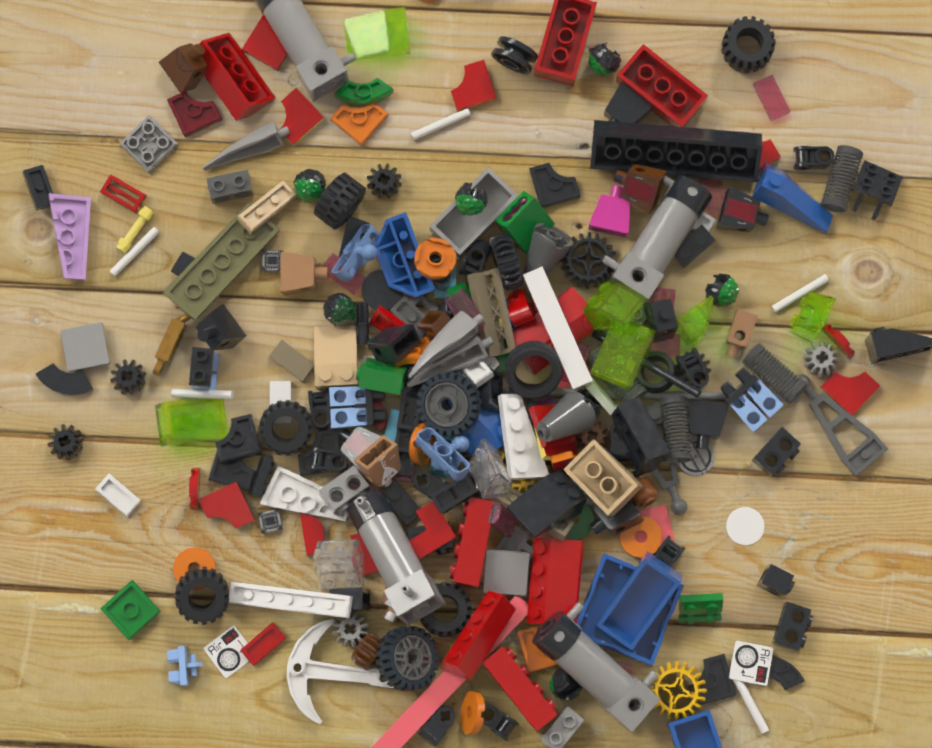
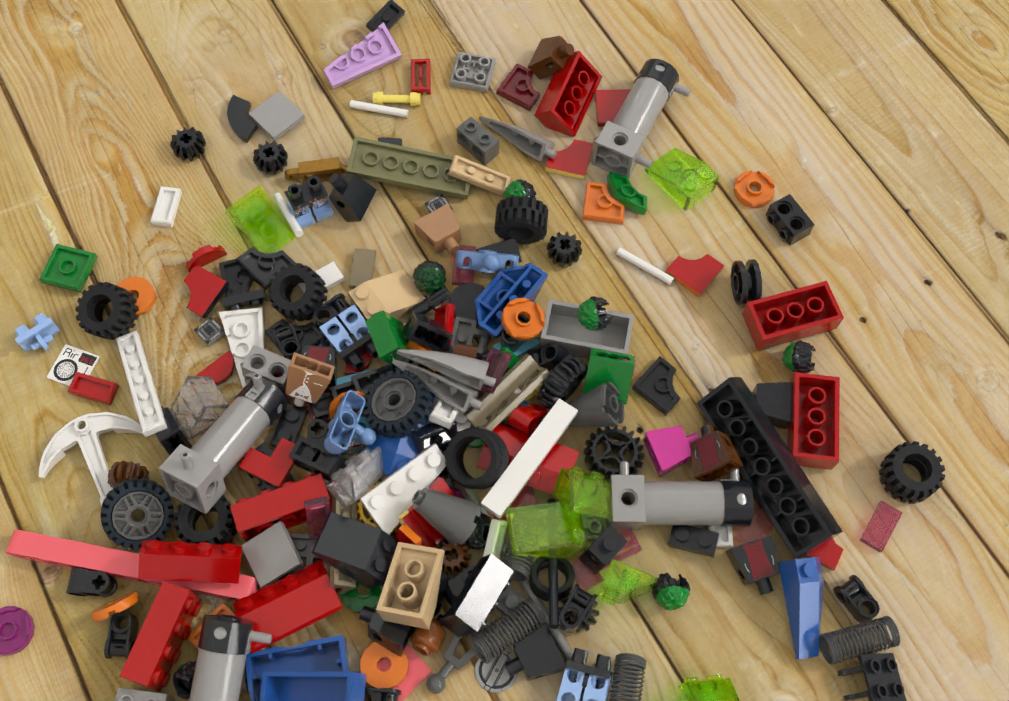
camera: 55 degrees right, 15 degrees down
(349, 637) = (142, 443): light grey gear -> none
(743, 322) = (654, 629): medium nougat torso -> none
(799, 293) = (717, 669): white bar -> none

